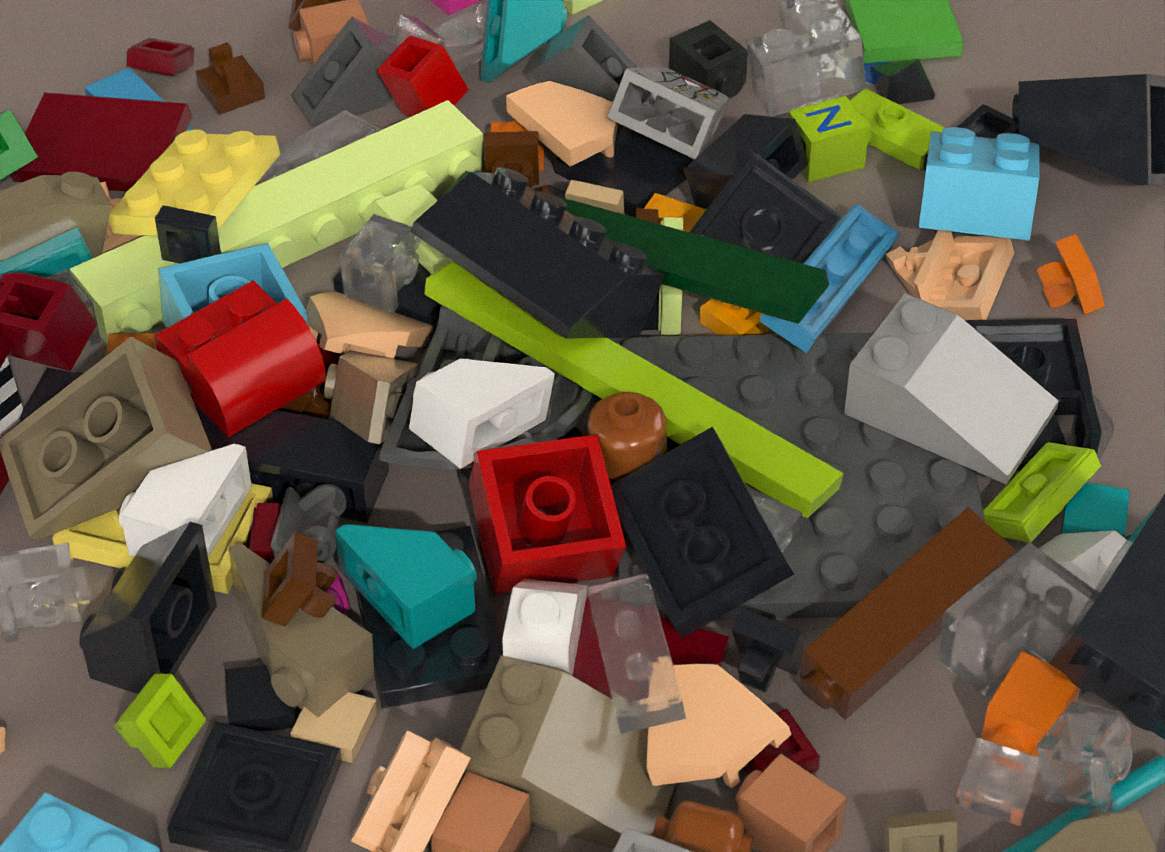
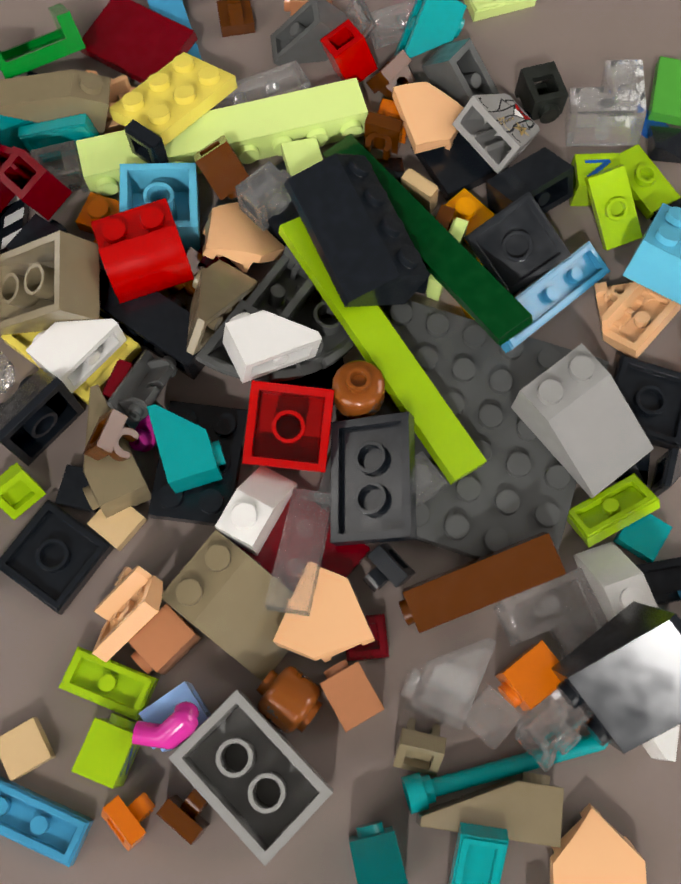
camera: 20 degrees right, 25 degrees up
(306, 246) = (221, 167): none -> reddish brown brick
(489, 93) = (391, 72): none -> reddish brown tile
(869, 157) = (613, 207): none -> lime plate
(917, 738) = (448, 684): none -> clear slope

